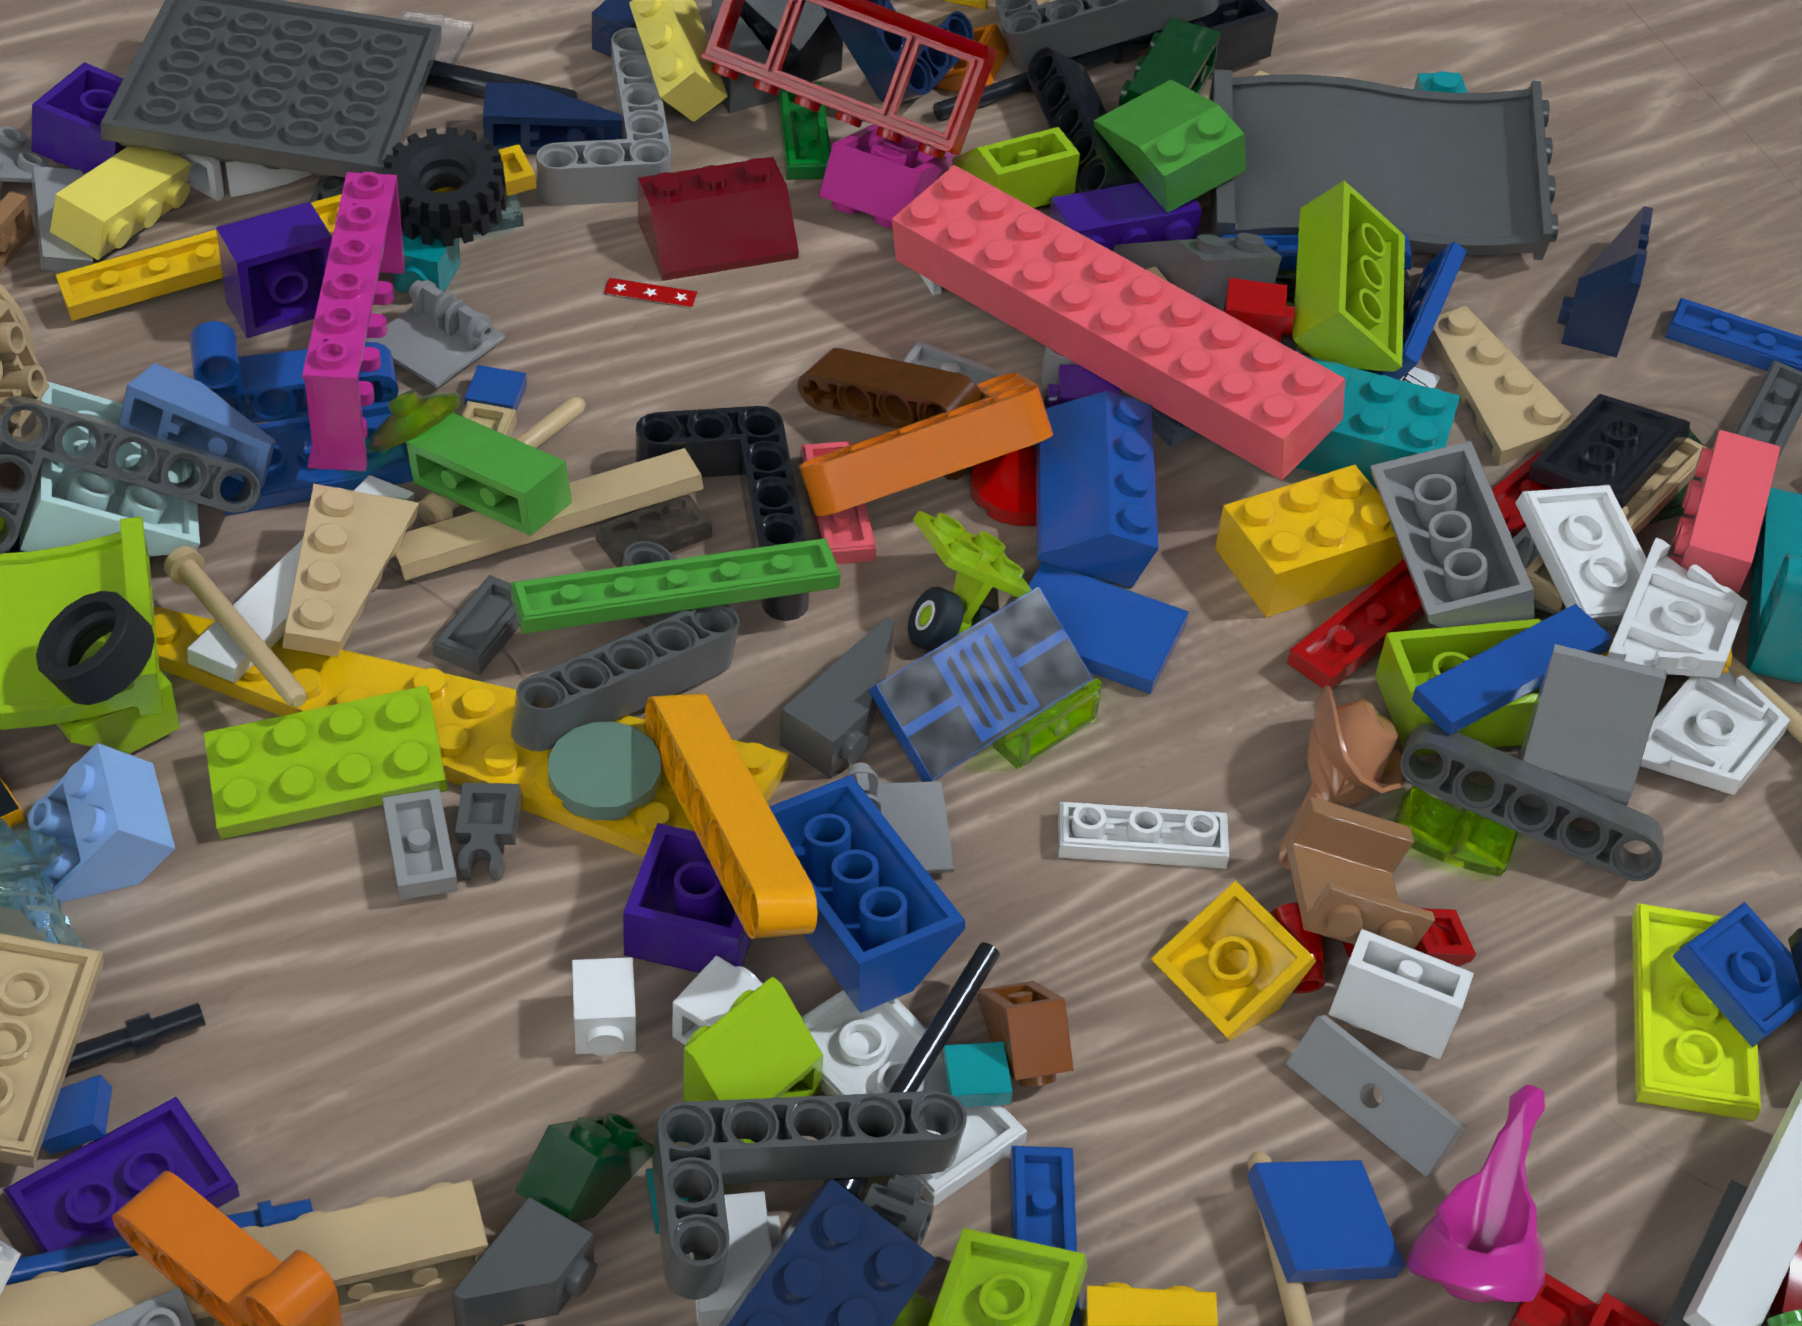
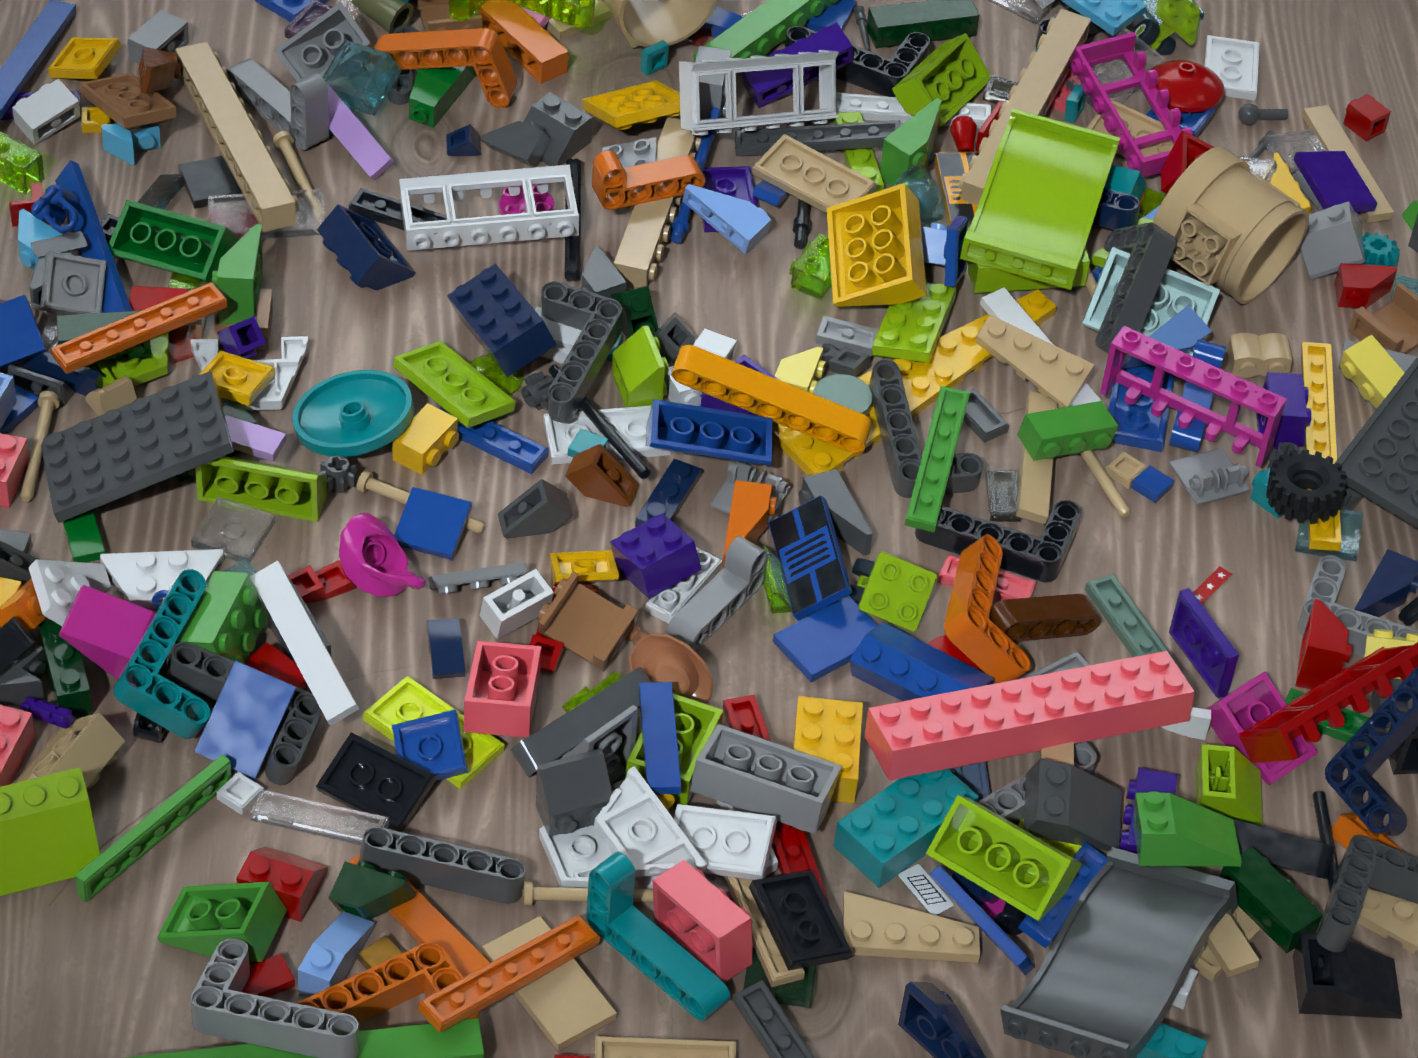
camera: 120 degrees right, 0 degrees up
(77, 630) = (988, 219): black tyre -> none
(127, 340) = (1257, 355): none -> tan brick
(144, 723) = (954, 265): none -> blue plate
(186, 567) = (1060, 304): tan bar -> none
(218, 1111) = (732, 217): none -> light blue slope
(221, 822) = (877, 249): none -> yellow slope
(258, 948) = (812, 270): none -> clear neon green brick
(412, 417) = (1125, 418): clear neon green dish -> none
(575, 864) = (802, 369): none -> light yellow slope
(617, 1070) = (672, 336): none -> dark grey slope
(717, 218) = (1253, 623): dark red slope -> none
(723, 122) = (1322, 648): none -> red slope
(795, 341) = (1124, 616): none -> sand green tile
(804, 232) = (1203, 643): none -> dark purple tile
(973, 787) = (749, 511): none -> orange slope
(1018, 930) = (670, 492): none -> dark blue plate
(1149, 764) = (722, 596): none -> light grey beam
(1154, 854) = (655, 555): none -> dark purple brick
(1179, 1081) = (535, 511): none -> dark grey slope
(1260, 306) = (1002, 790): red brick -> none
(1547, 1059) = (445, 648): none -> dark blue slope
(1581, 918) = (502, 689): none -> coral brick
(1695, 742) = (572, 791): none -> dark grey slope

